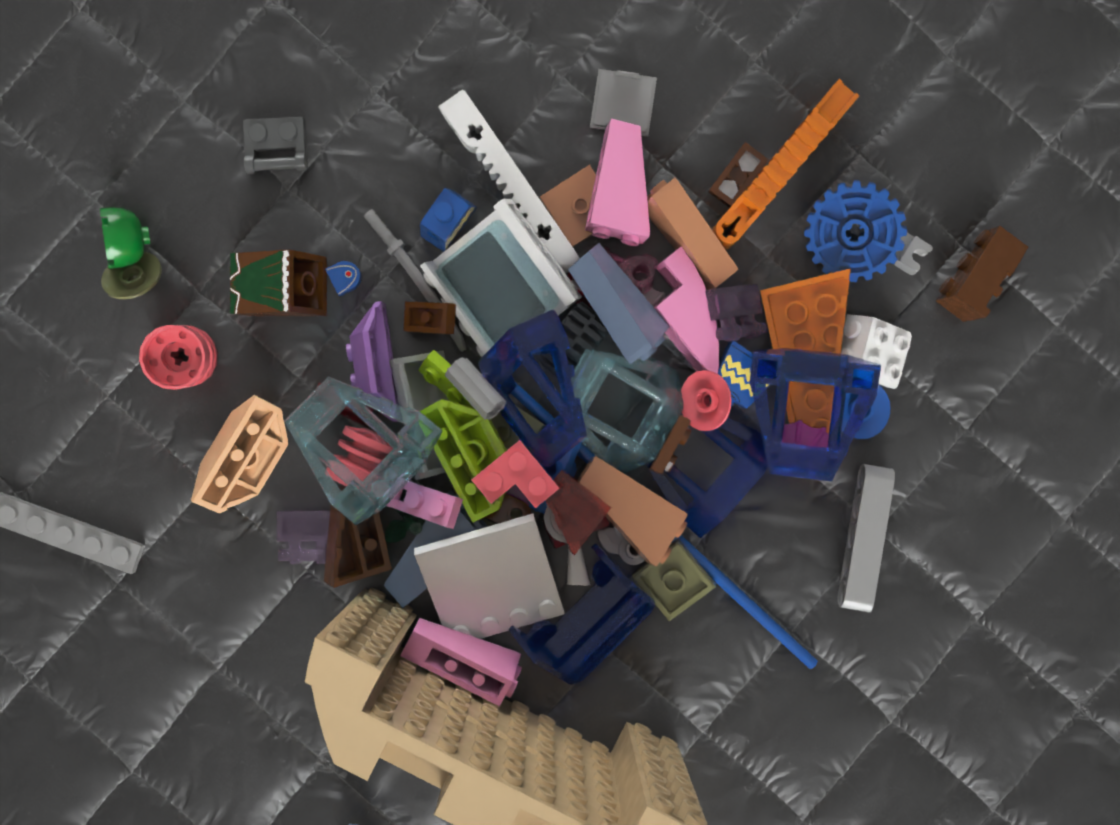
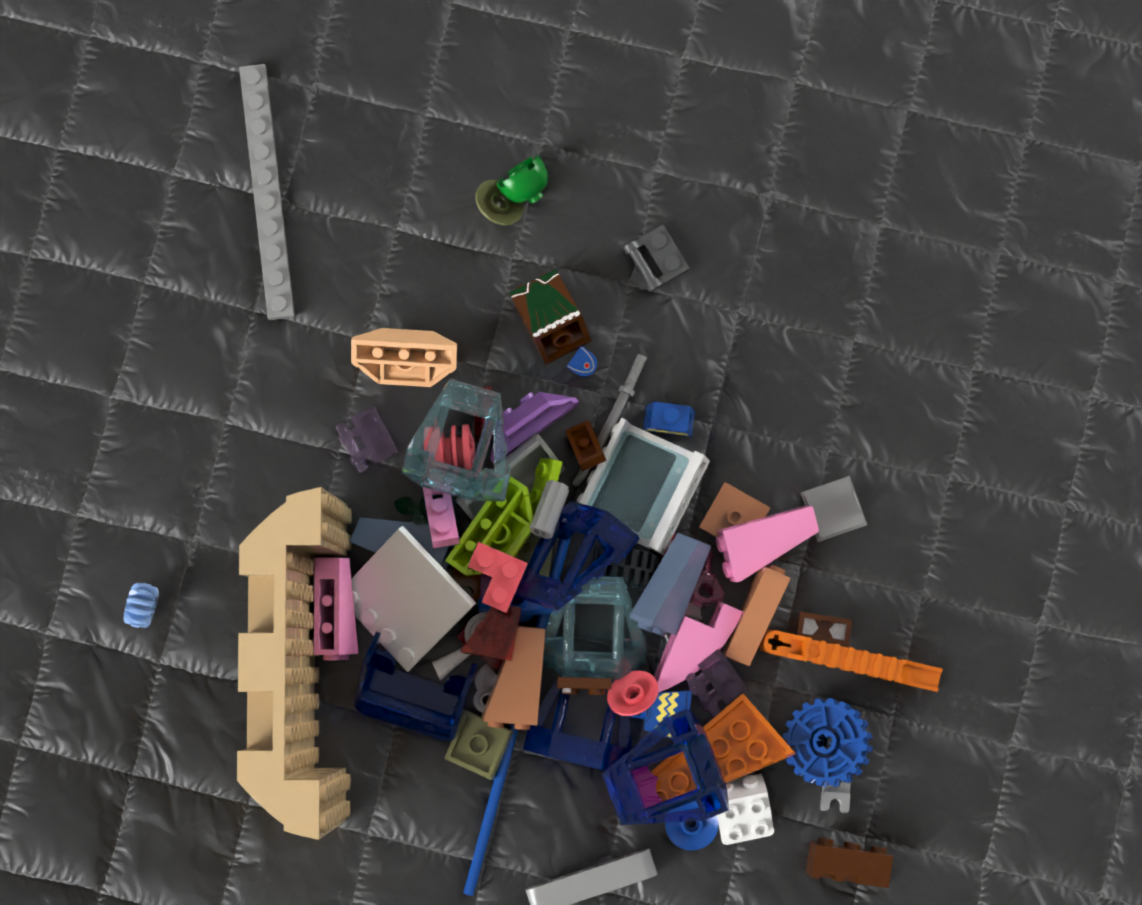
camera: 65 degrees right, 5 degrees down
(161, 358) = (443, 263): coral wheel -> none
(354, 549) = (378, 479): reddish brown wedge -> none
(465, 118) = (753, 392): white gear -> none

